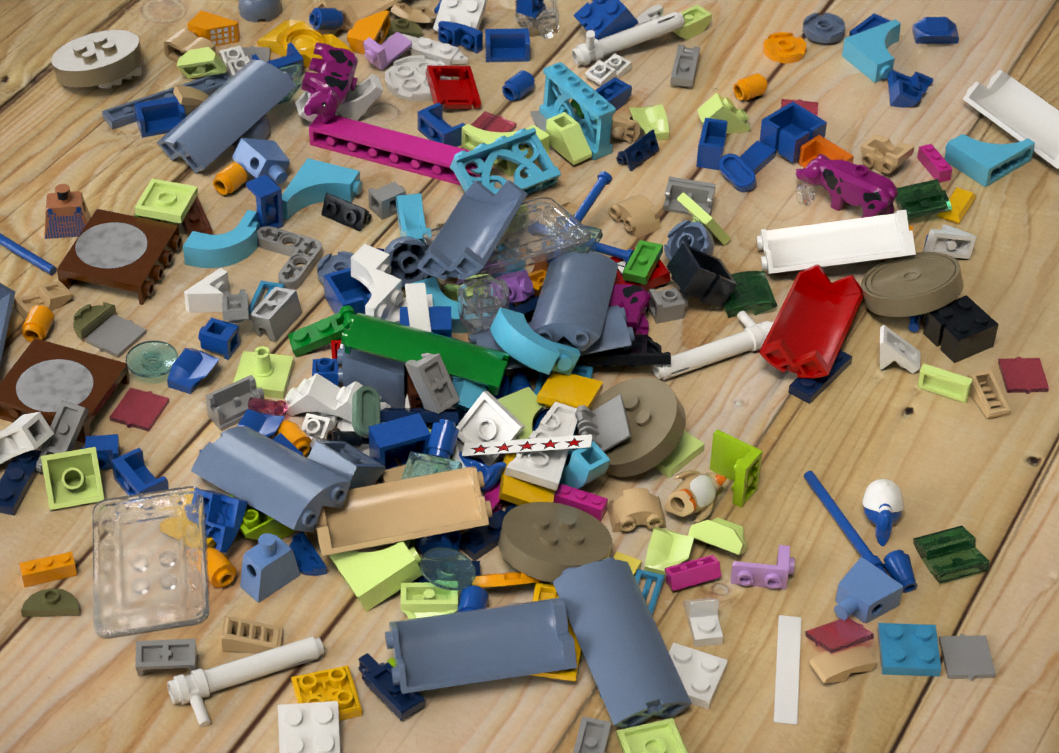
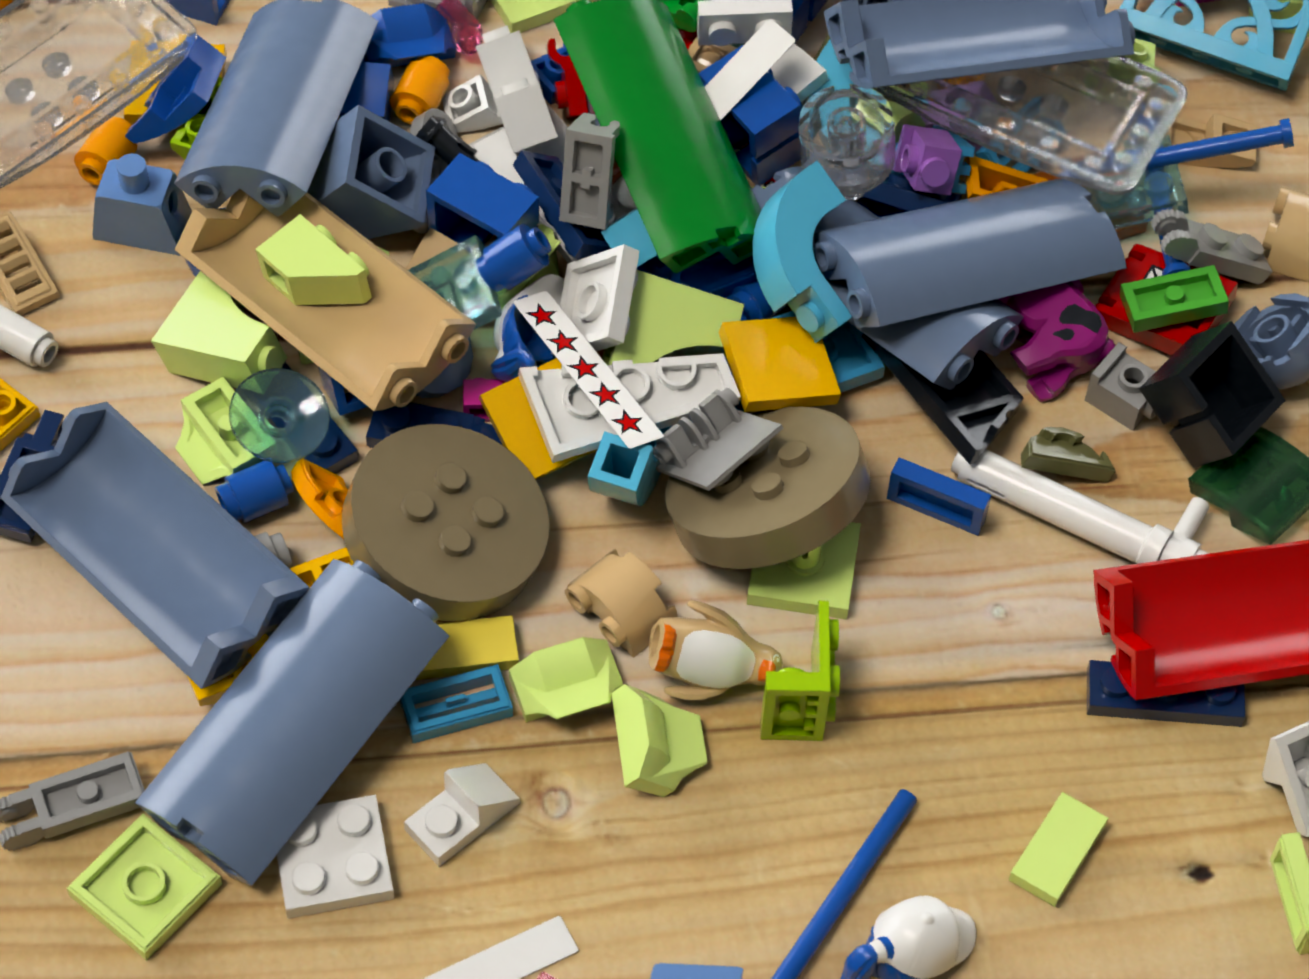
camera: 55 degrees right, 15 degrees up
(338, 376) = (569, 91): none -> red plate
(365, 410) = (506, 132): sand green tile -> none
(388, 505) = (311, 267): none -> yellowish green slope
(582, 500) = (583, 513): dark pink piece -> none
(624, 238) = (1209, 245): none -> light grey hinge
(682, 381) = (938, 496): none -> blue tile
(683, 341) = (1063, 453): none -> olive plate
(693, 572) = (544, 743): dark pink piece -> none
(765, 575) = (647, 866): lavender bracket -> none
(868, 443) = (1058, 849): none -> yellowish green tile

